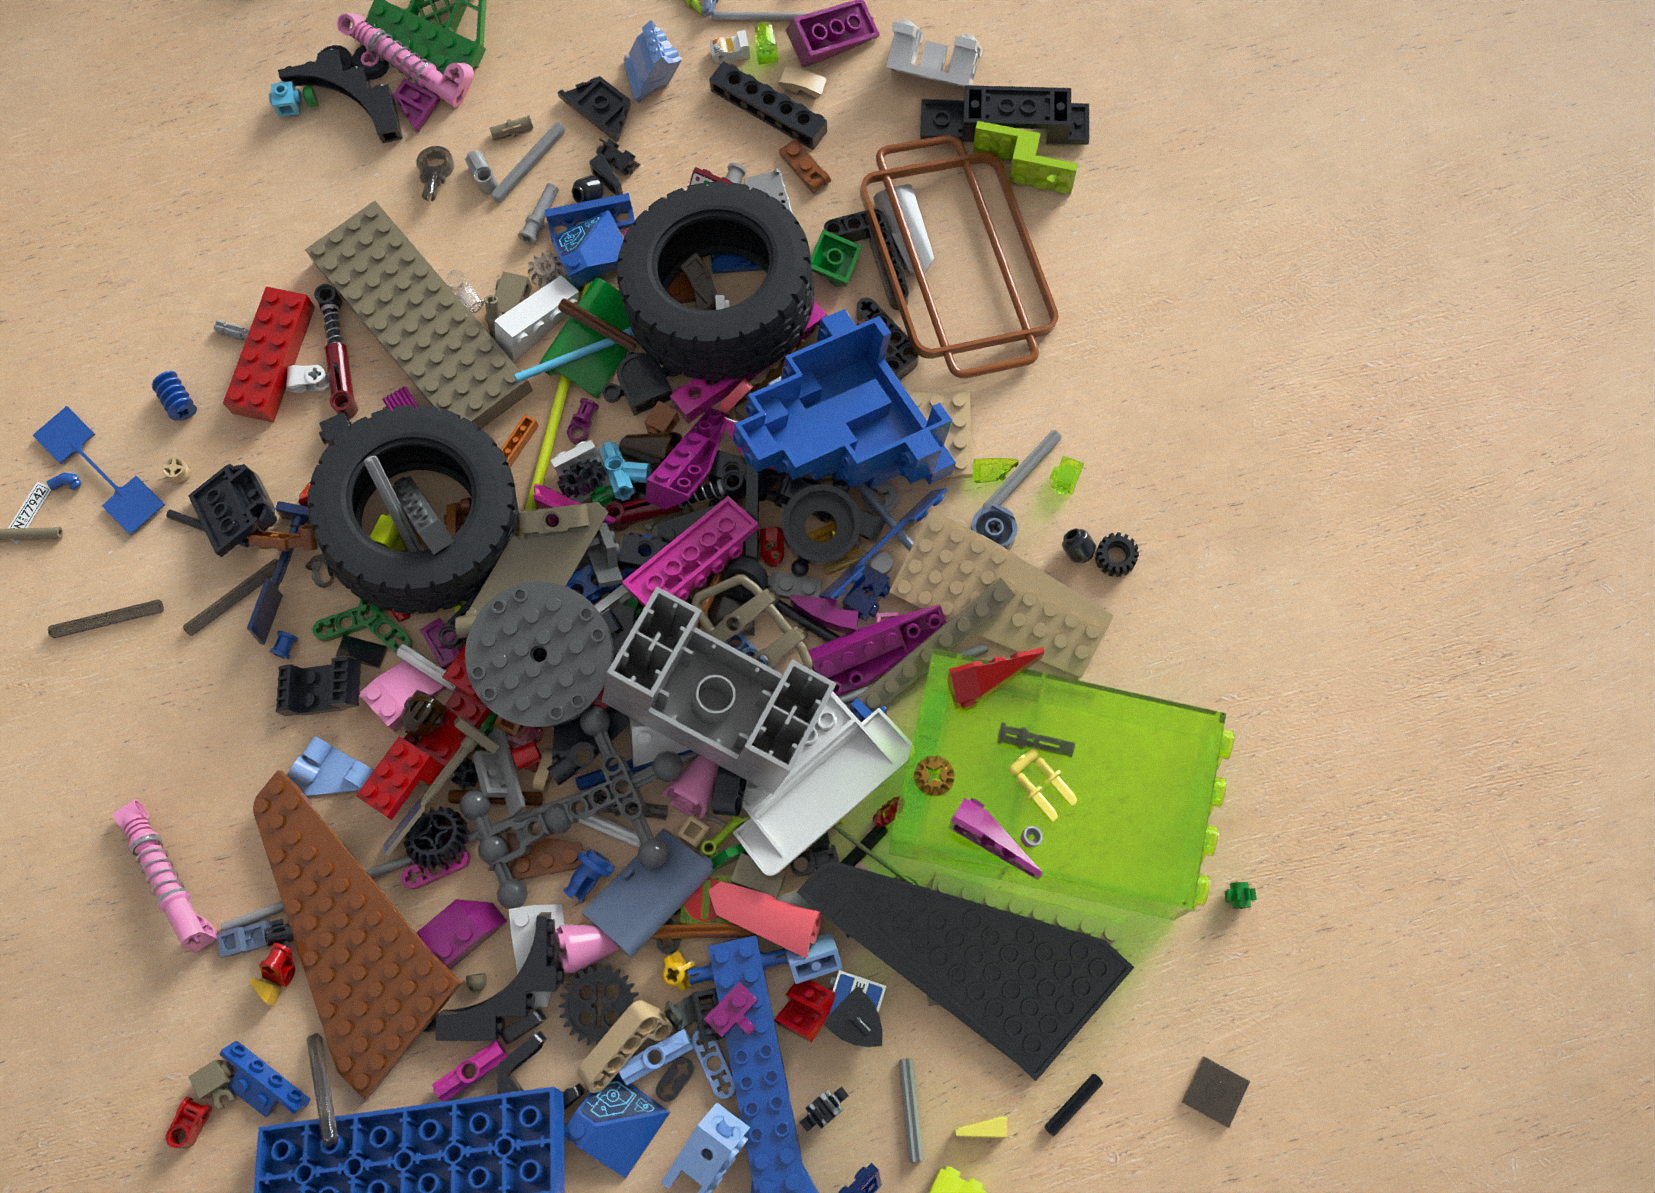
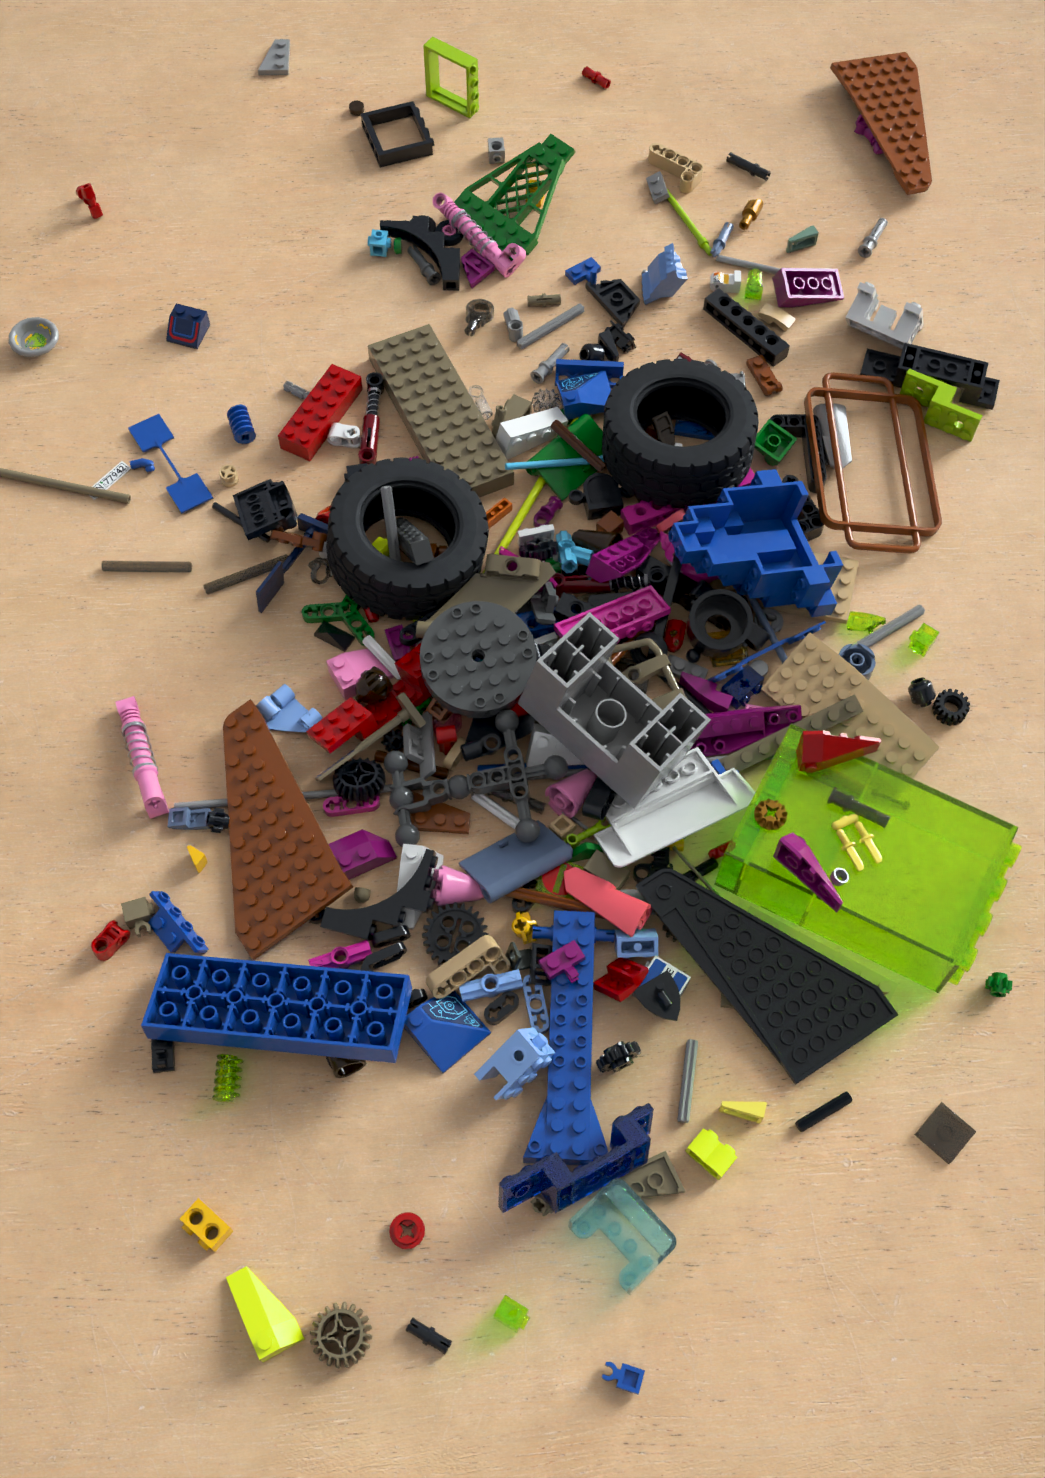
camera: 10 degrees right, 10 degrees down
(71, 275) = (187, 326): none -> dark blue slope
(278, 965) = (212, 841): red piece -> none
(283, 644) = (276, 615): blue bush -> none
(319, 687) = (296, 652): black plate -> none
(322, 1090) = (223, 938): clear smoke axle -> none
(354, 120) = (426, 268): none -> dark grey pin
(552, 74) = (585, 270): none -> blue plate
(588, 873) = (476, 830): blue piece -> none

